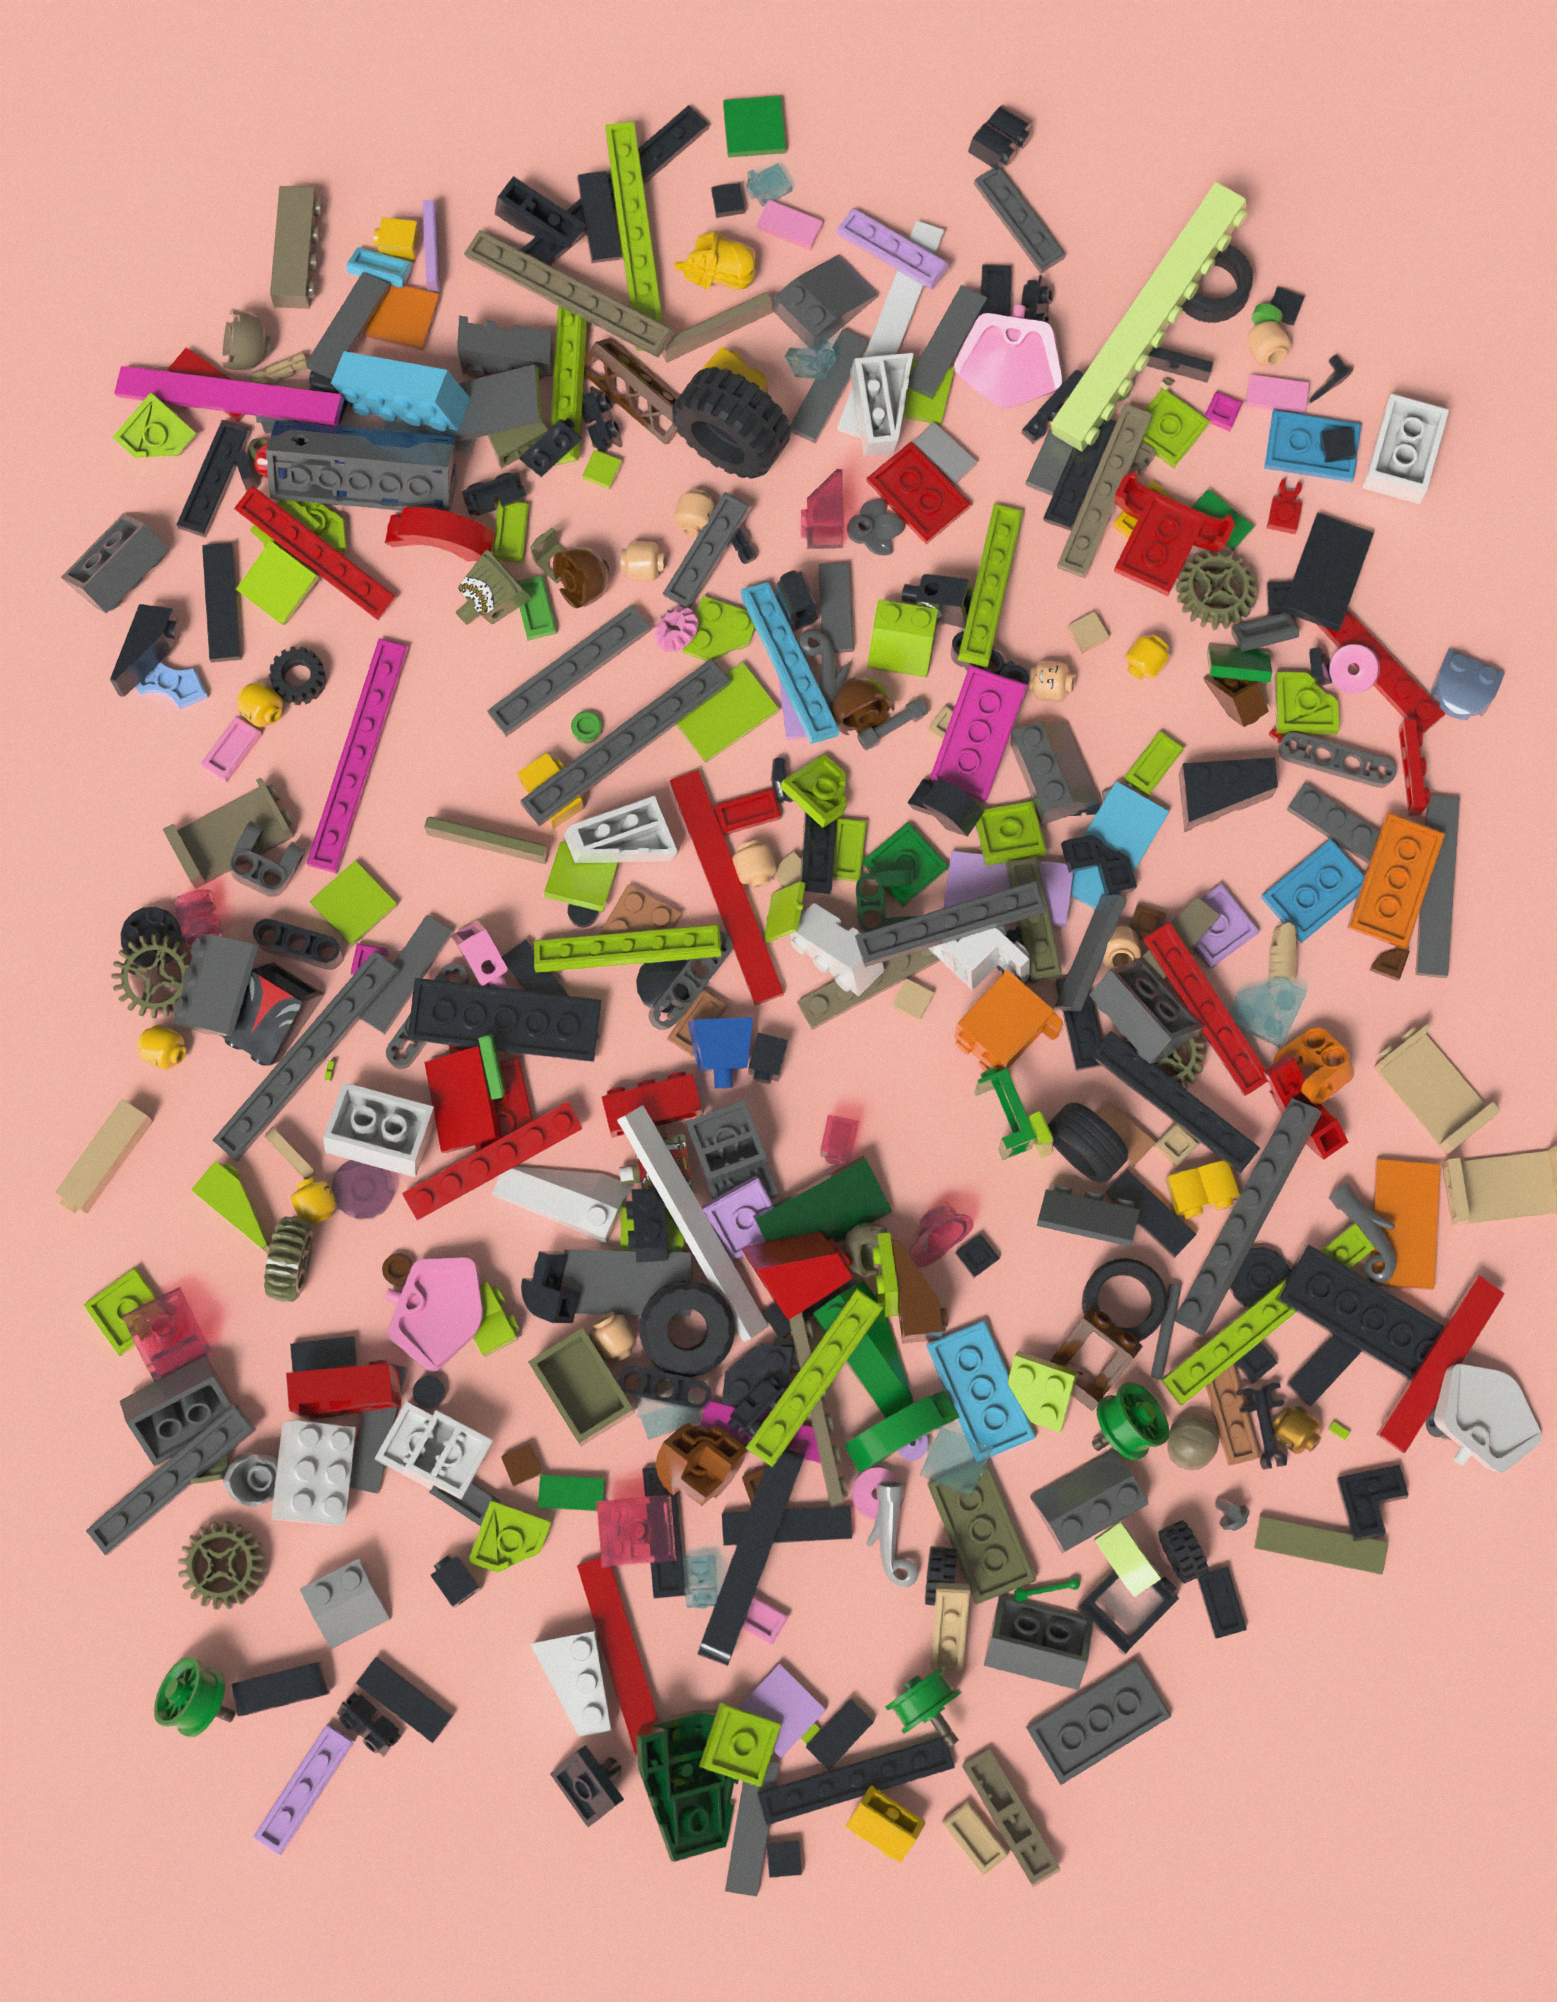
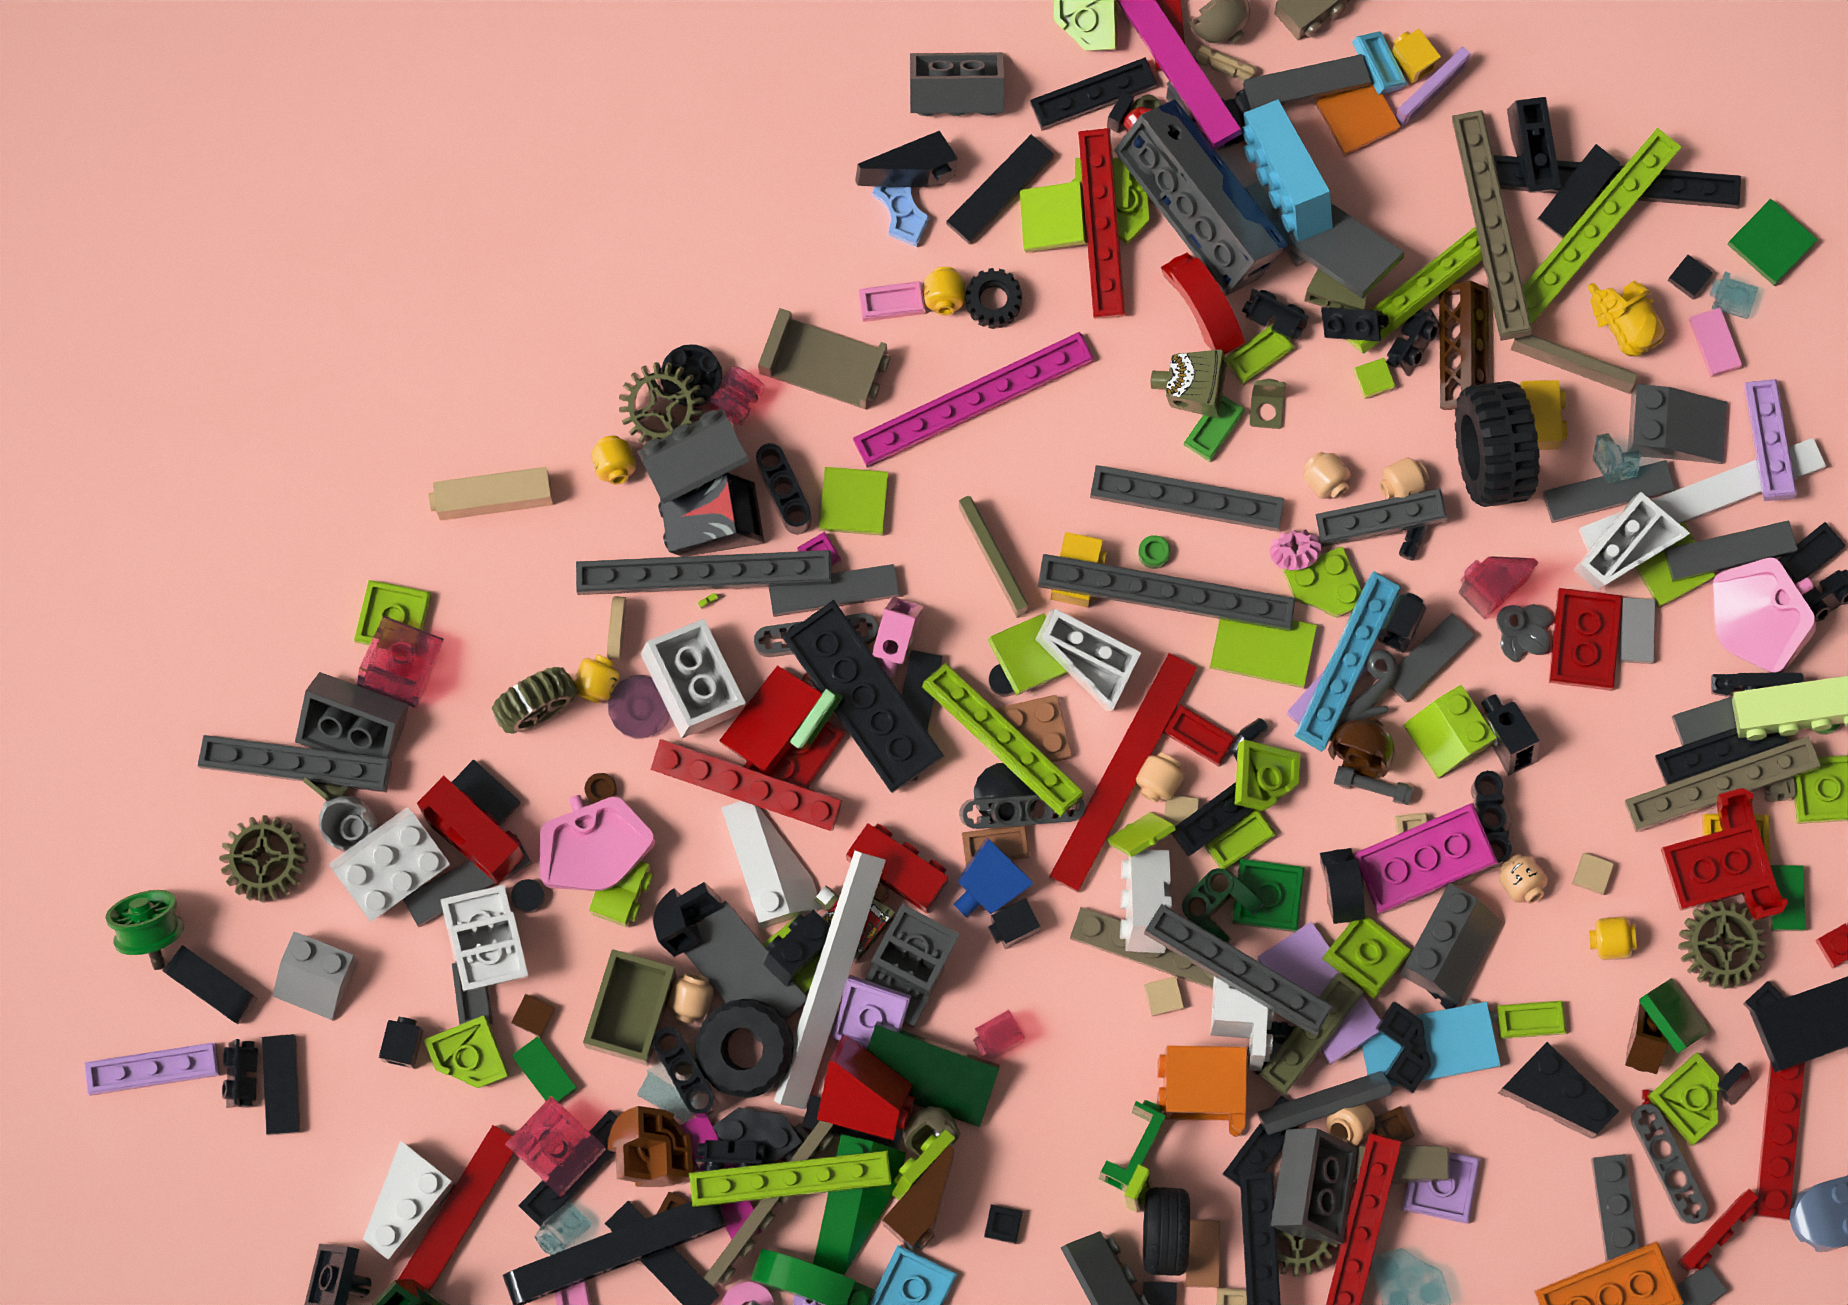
camera: 50 degrees right, 0 degrees up
(229, 1197) = (542, 616): lime slope -> none
(261, 866) = (805, 410): dark grey piece -> none
(498, 350) = (1398, 217): dark grey wedge -> none
(582, 575) = (1272, 440): reddish brown cylinder -> none
(938, 1233) = (991, 1178): clear pink piece -> none
(990, 585) = (1557, 762): lime tile -> none
(1264, 631) = (1722, 1014): dark grey tile -> none
(1283, 953) = (1465, 1258): tan hinge -> none
(1315, 890) = (1542, 1239): dark azure tile -> none
(1368, 665) = (1772, 1115): bright pink piece -> none

